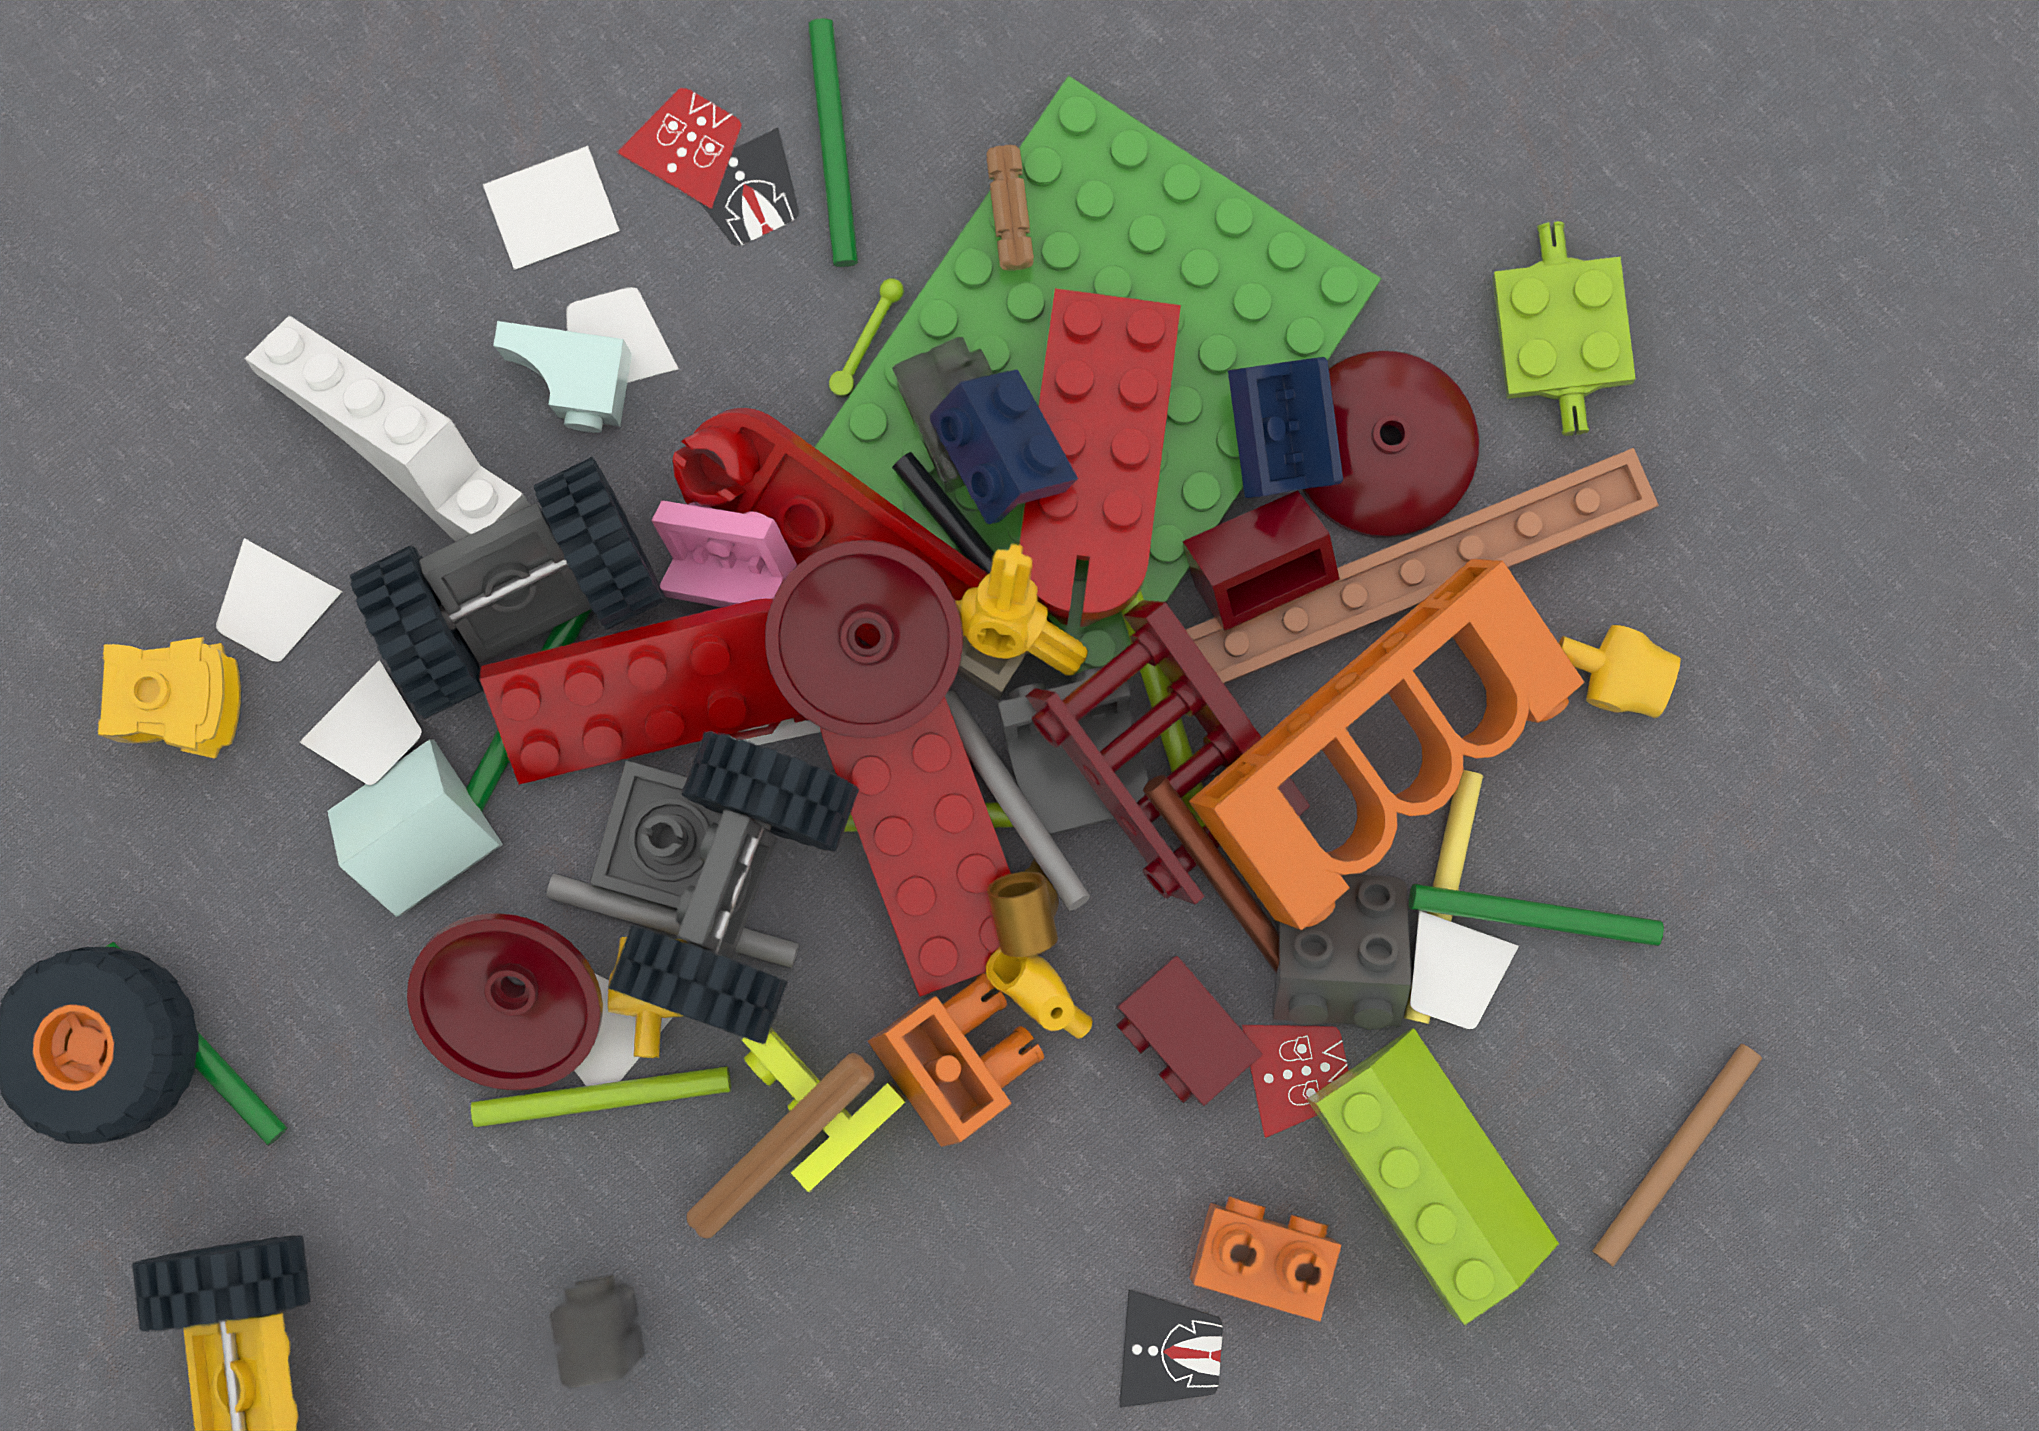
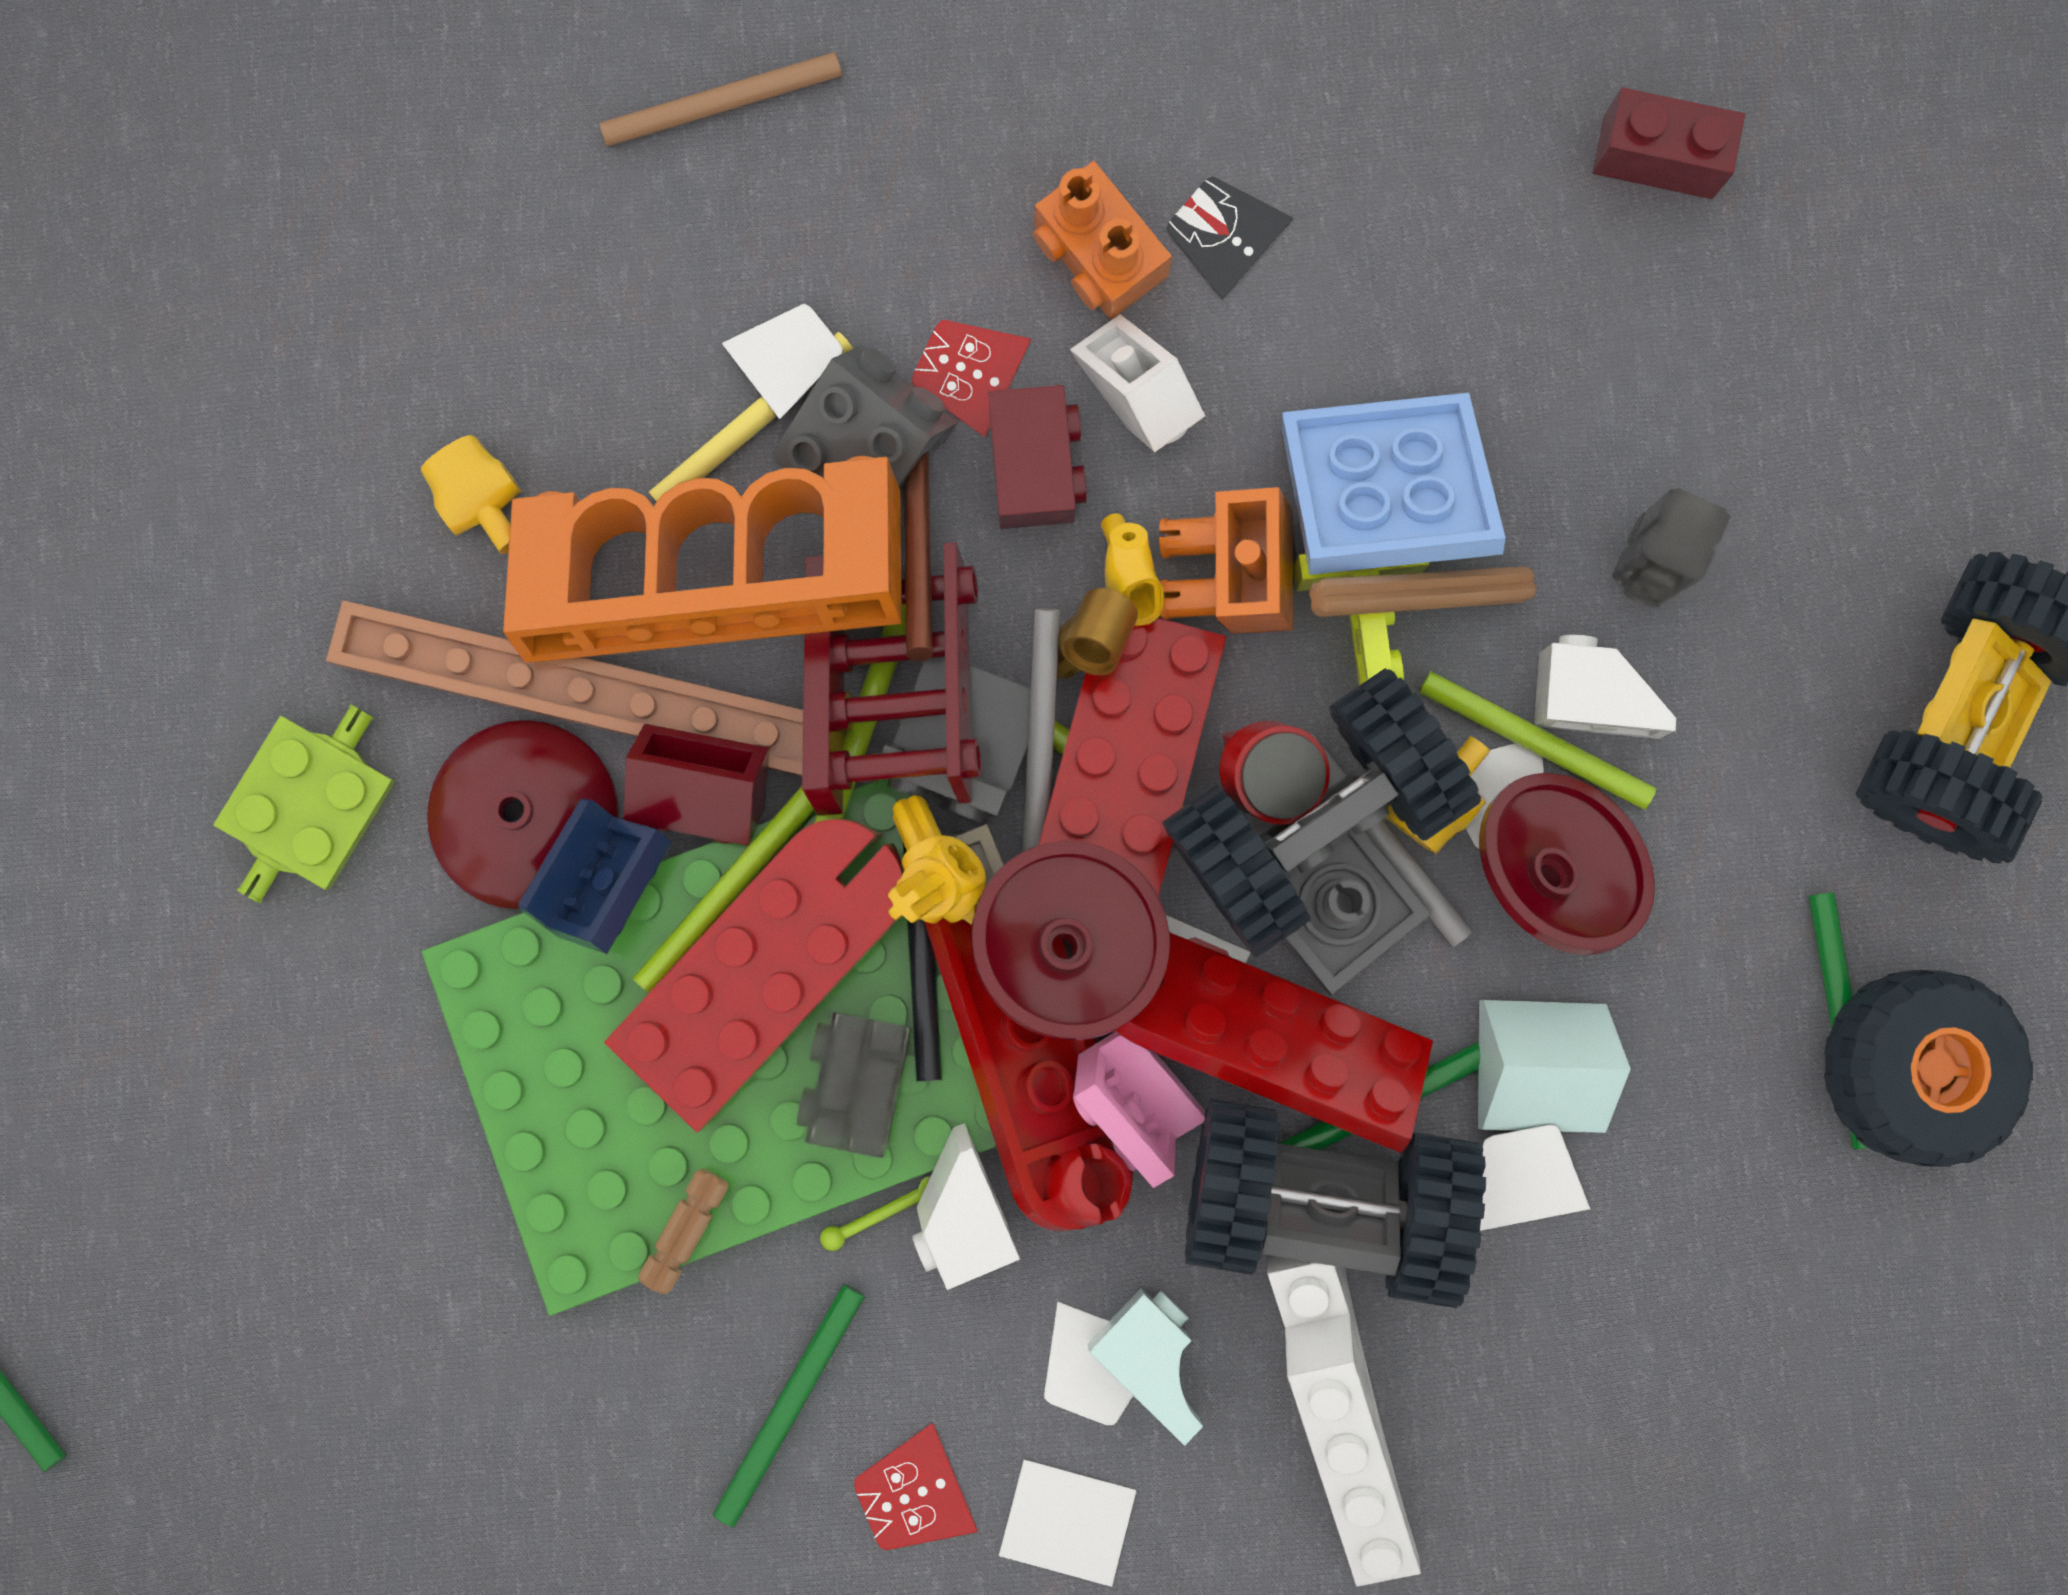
camera: 140 degrees left, 0 degrees up
(171, 695) = (1674, 1314): yellow piece -> none
(271, 603) = (1535, 1345): white sticker -> none
(580, 1168) = (1596, 692): none -> white slope
(755, 191) = (884, 1411): black sticker -> none
(798, 374) = (962, 1217): none -> white slope
(799, 899) = (1274, 771): none -> pearl dark grey piece
(870, 1220) = (1391, 484): none -> light blue plate
(1001, 444) = (840, 1020): dark blue bracket -> none
(1146, 1160) = (1139, 382): none -> white slope
(1174, 487) = (726, 890): none -> lime bar
(1435, 1176) = (920, 211): lime slope -> none
(1536, 914) = (691, 353): green bar -> none

